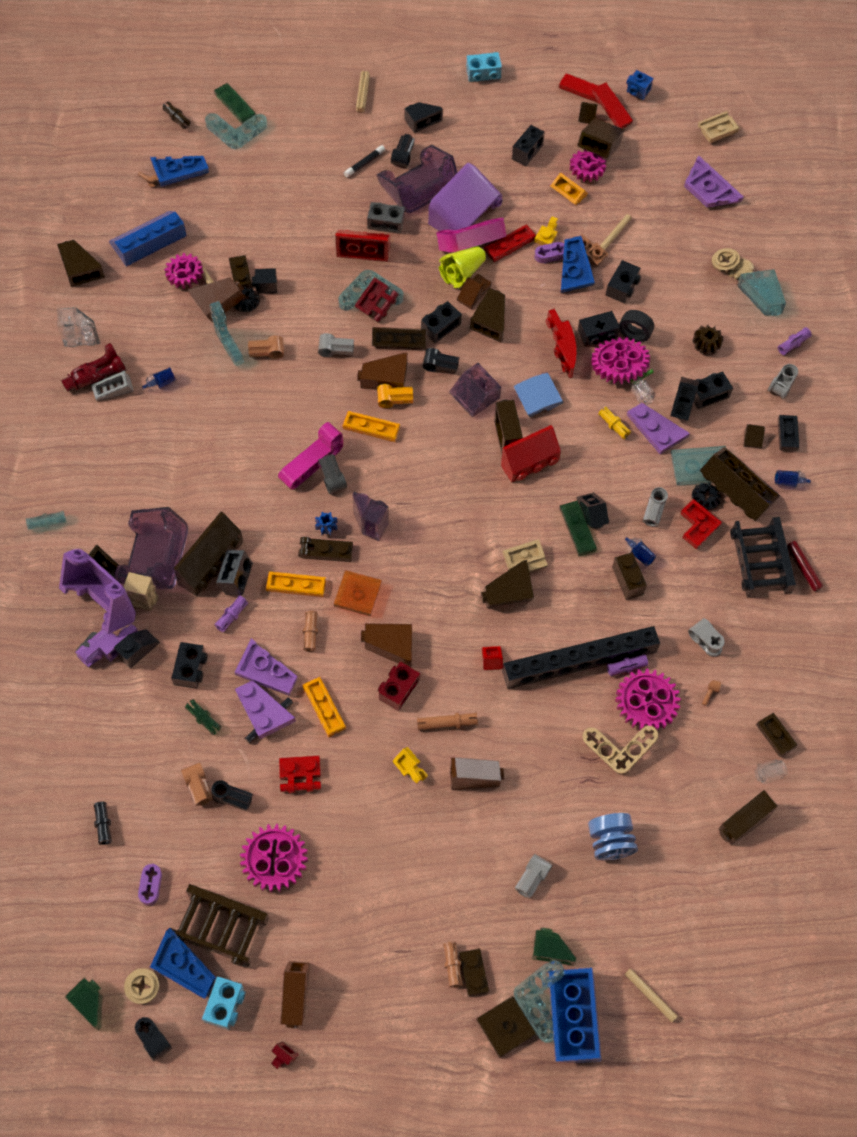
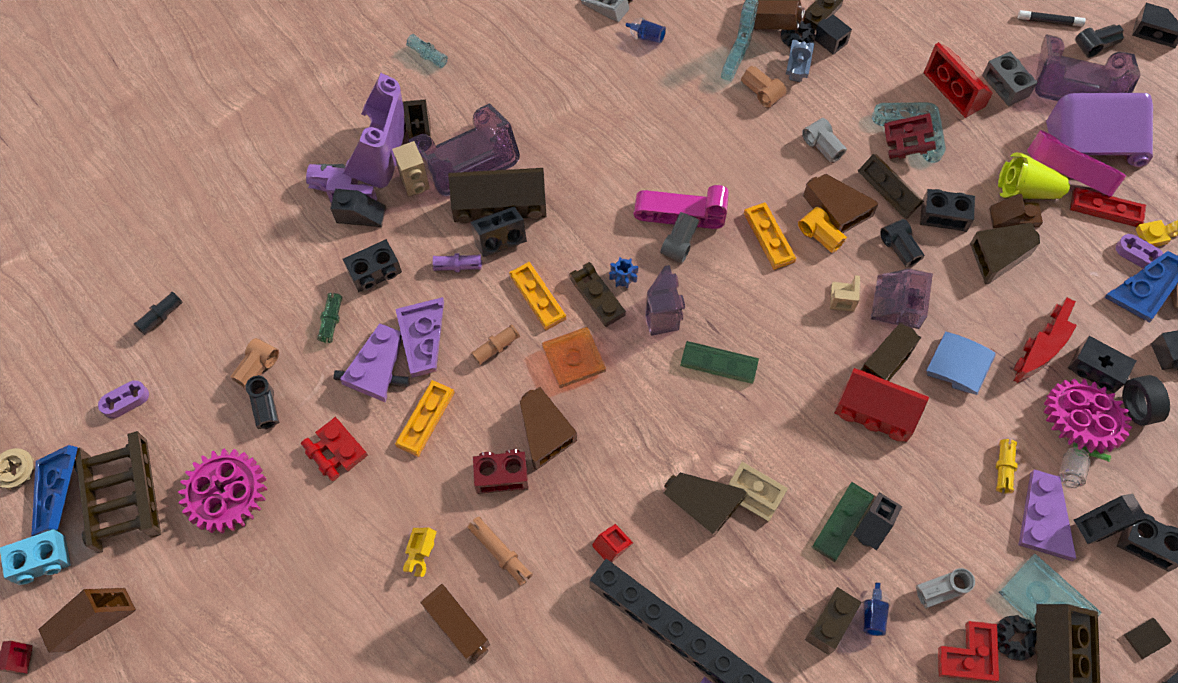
camera: 55 degrees right, 0 degrees up
(268, 313) = (799, 60): none -> sand blue hips
(429, 516) = (719, 362): none -> clear green tile
(446, 417) = (845, 295): none -> tan panel

